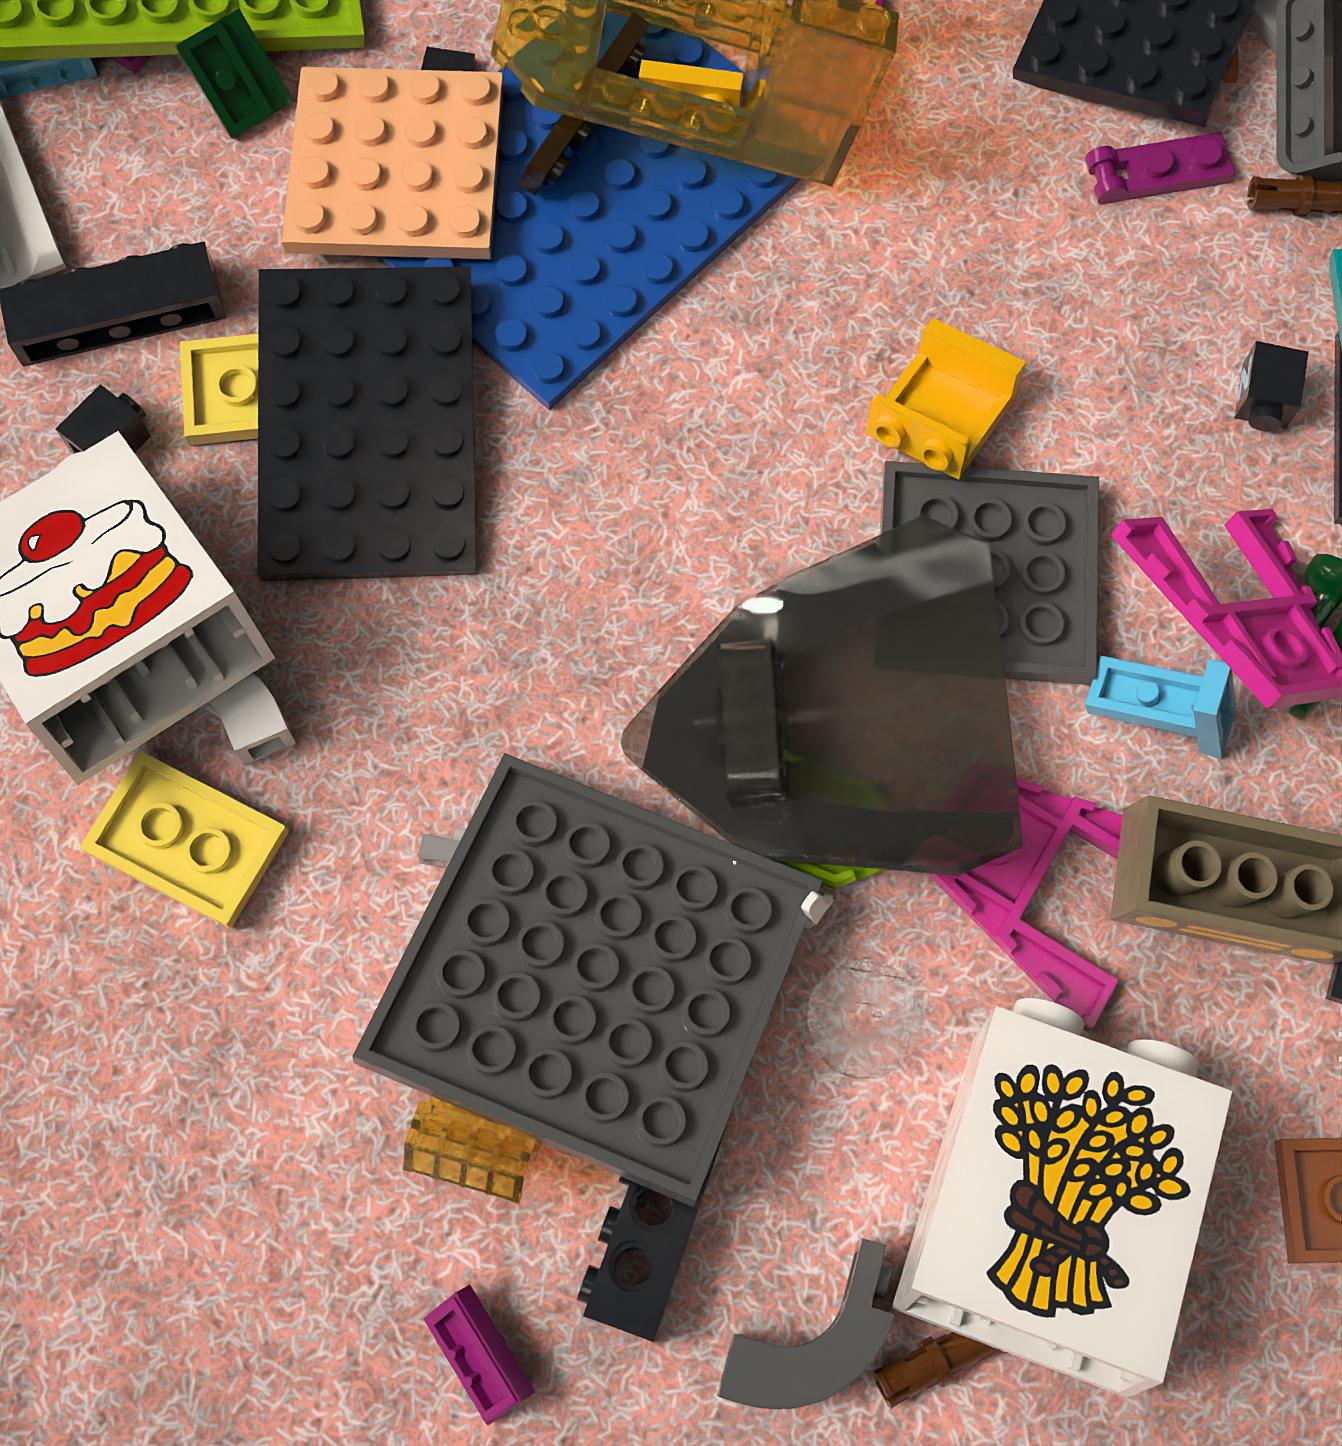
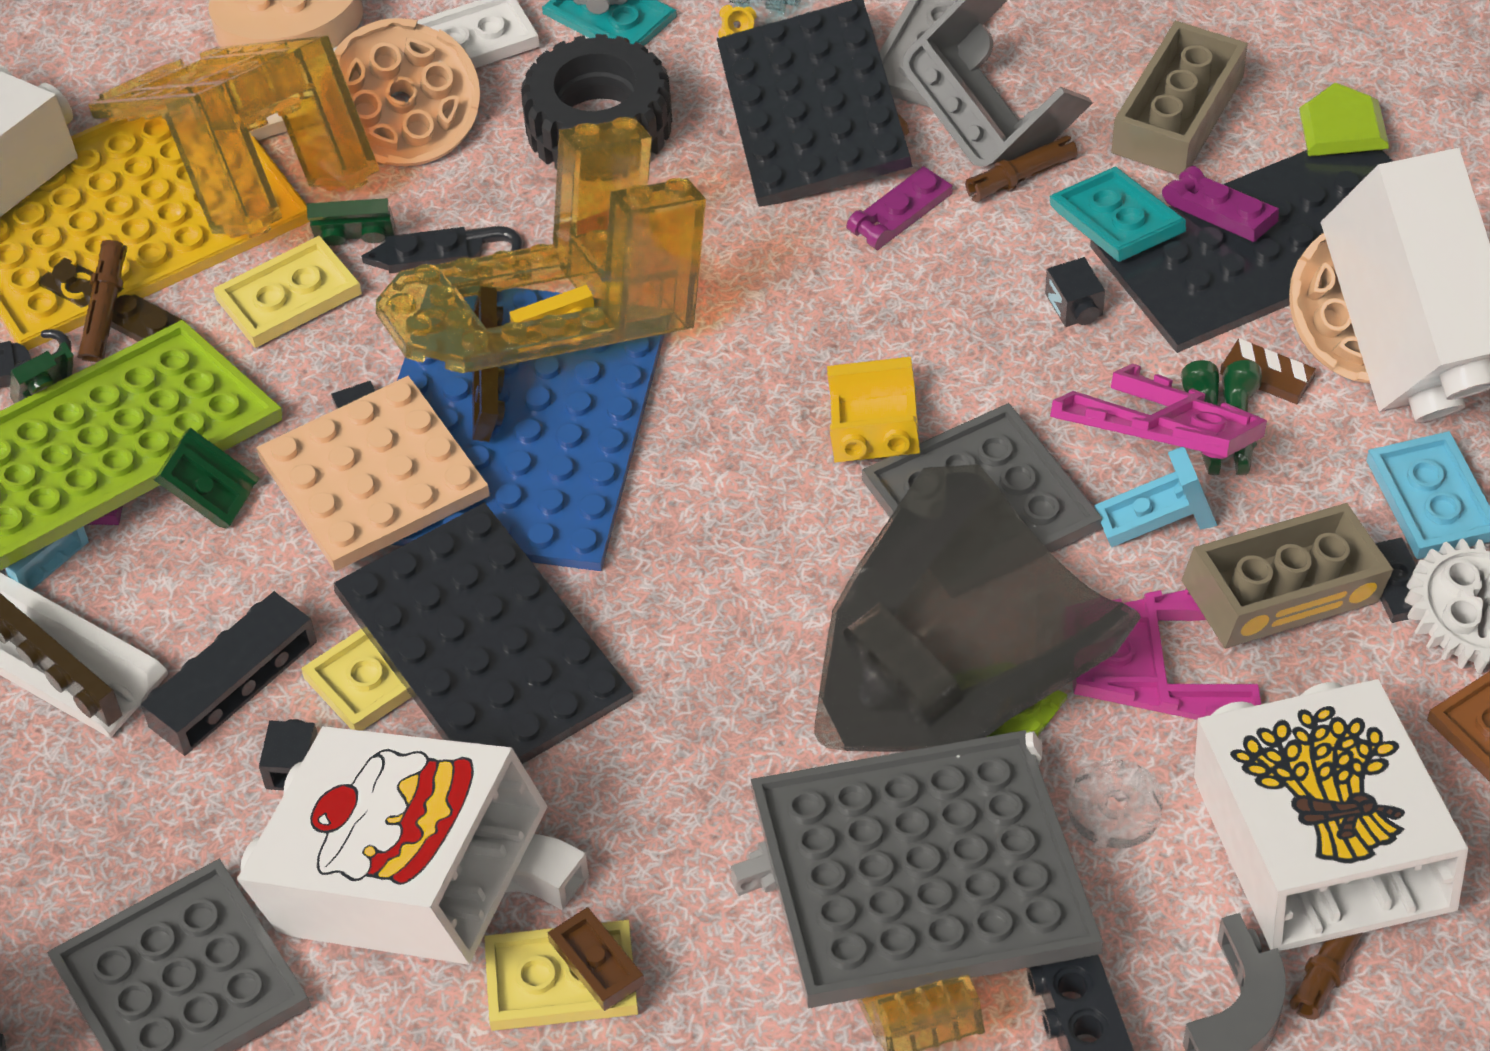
camera: 30 degrees left, 20 degrees down
(213, 853) = (596, 958): none -> reddish brown plate

